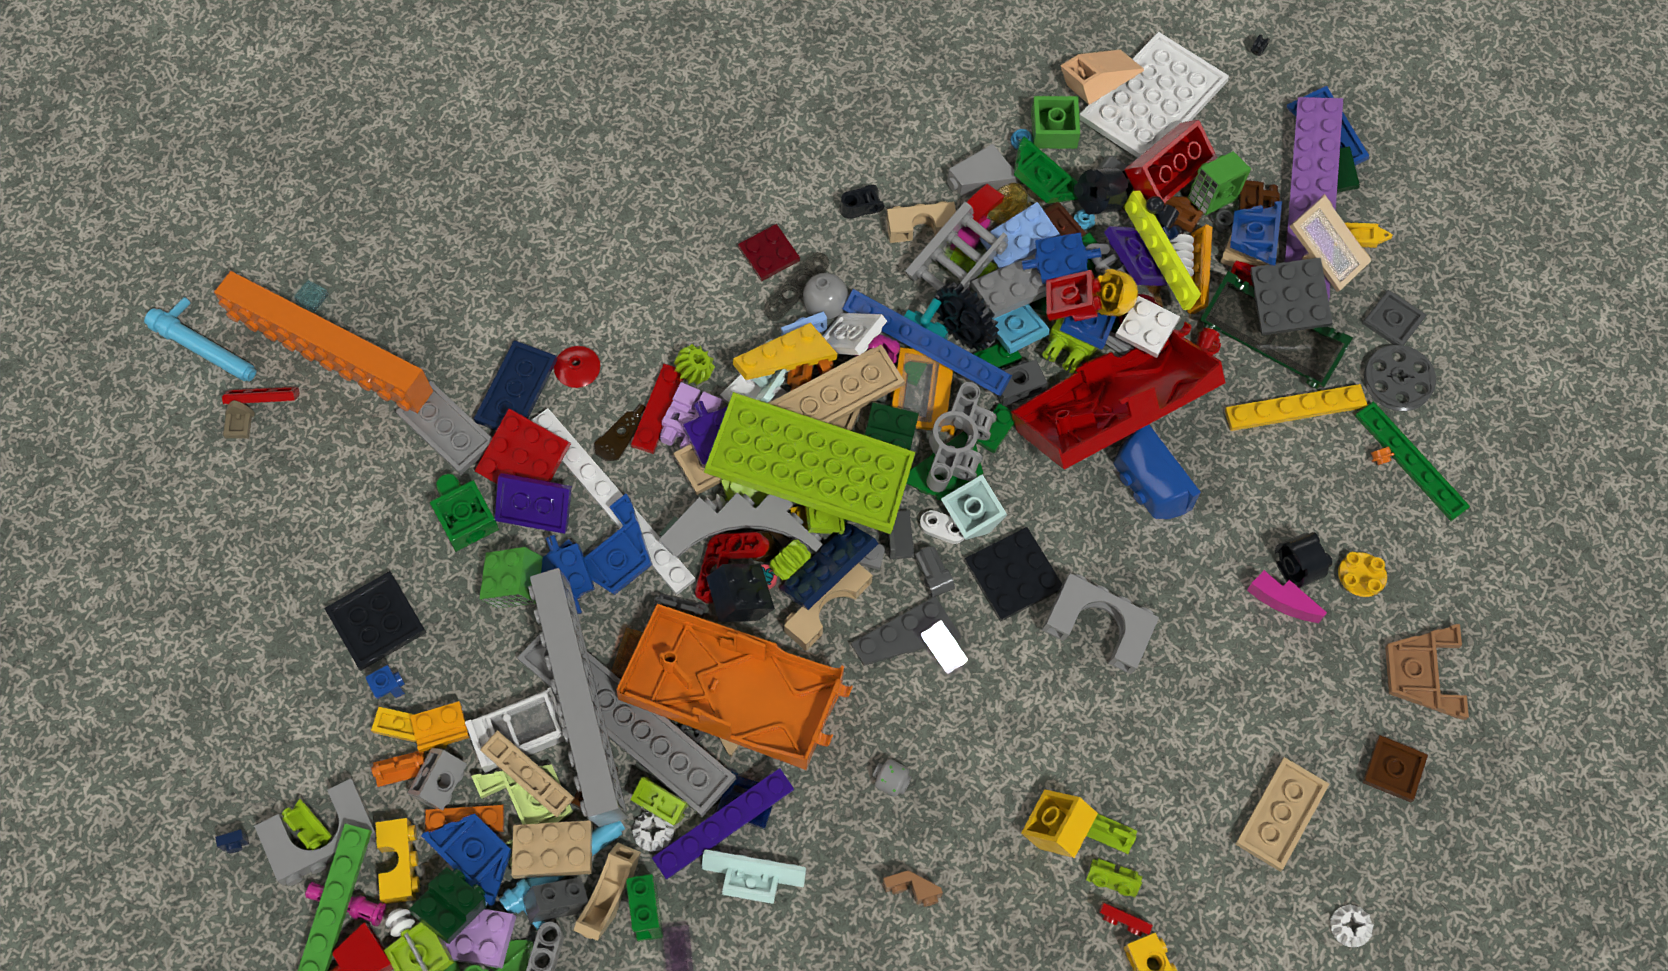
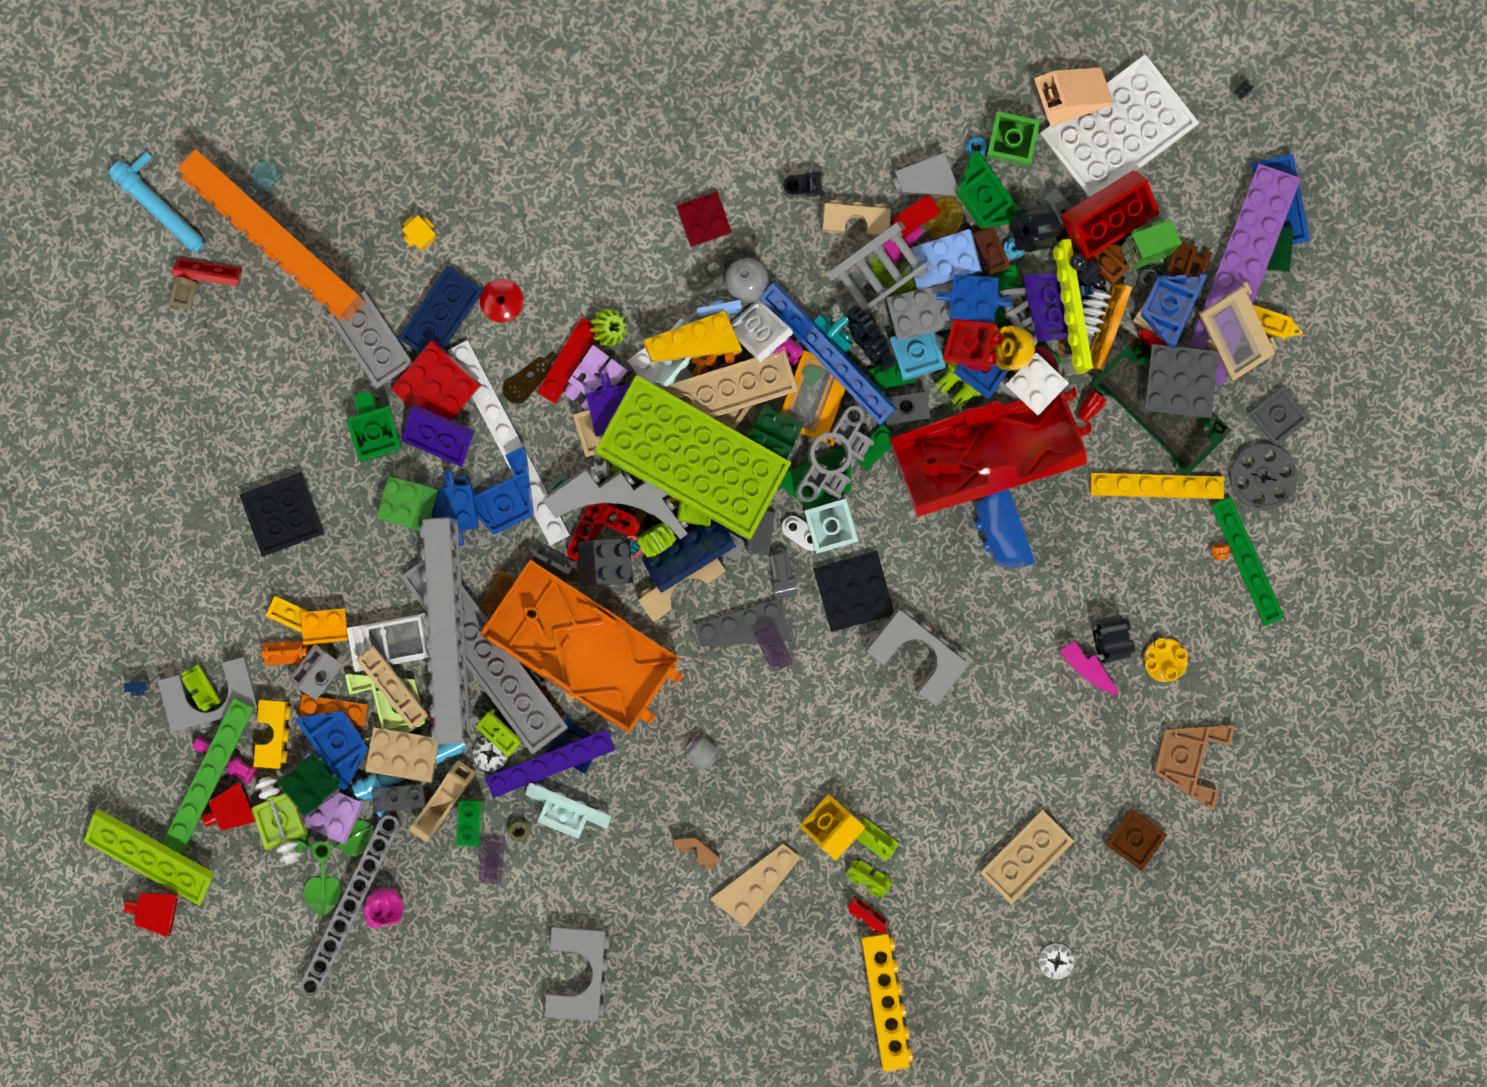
camera: 15 degrees right, 20 degrees up
(385, 681) = (283, 577): blue bracket -> none
(479, 316) = (418, 232): none -> yellow brick
(706, 902) = (526, 830): none -> olive plate
(985, 919) = (751, 890): none -> tan wing

